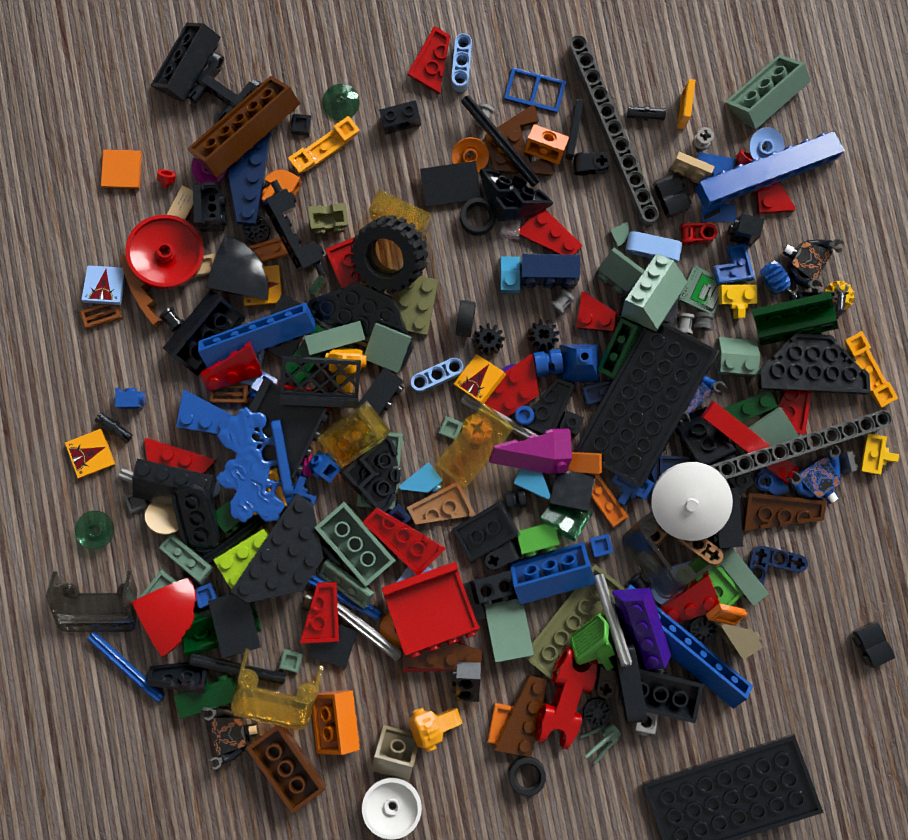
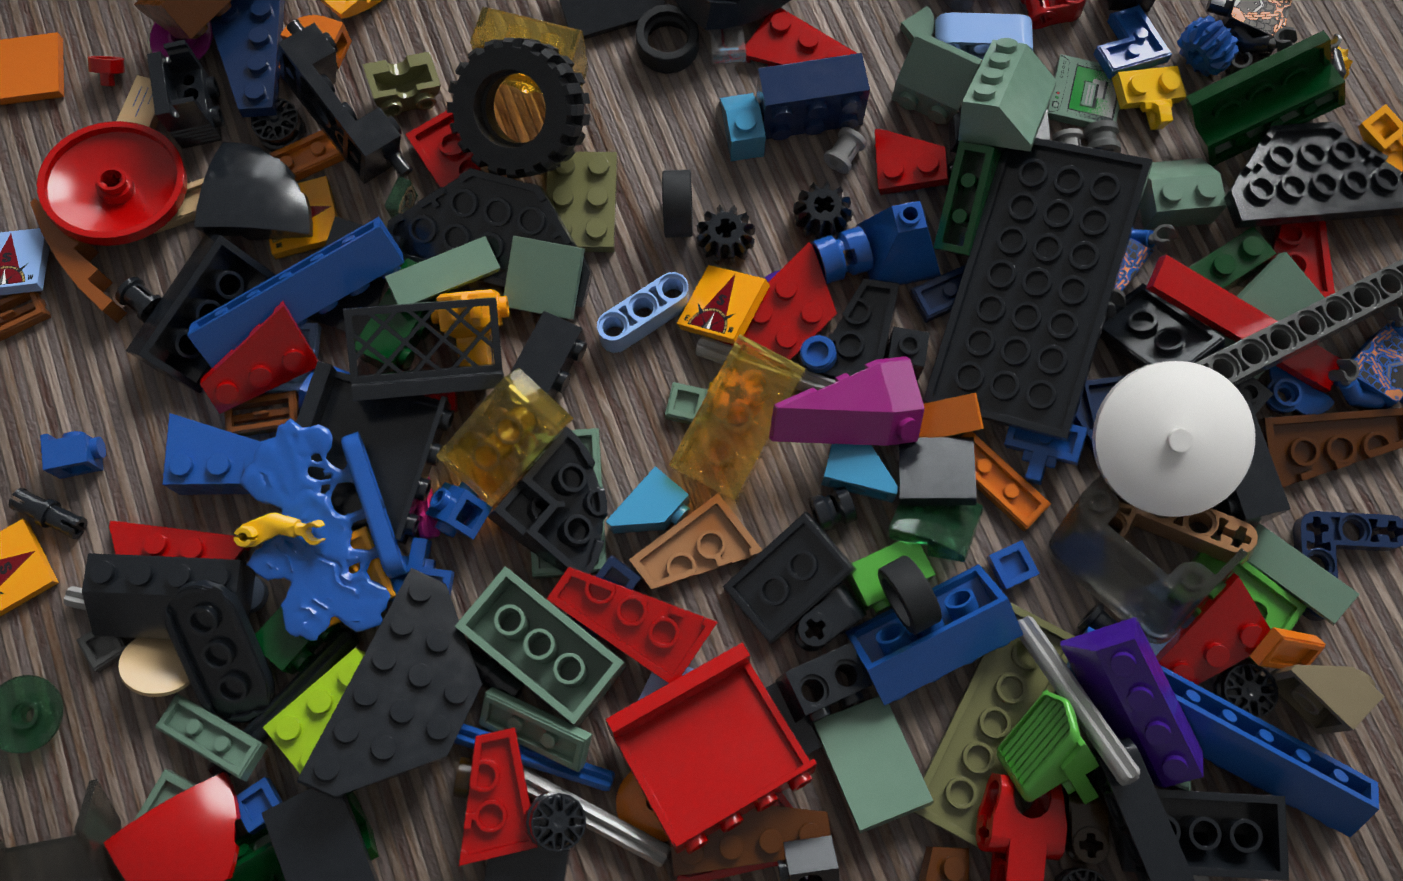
camera: 10 degrees left, 10 degrees down
(233, 462) = (272, 525): none -> yellow arm
(349, 631) = (555, 821): none -> black wheel
(542, 554) = (910, 594): none -> black tyre

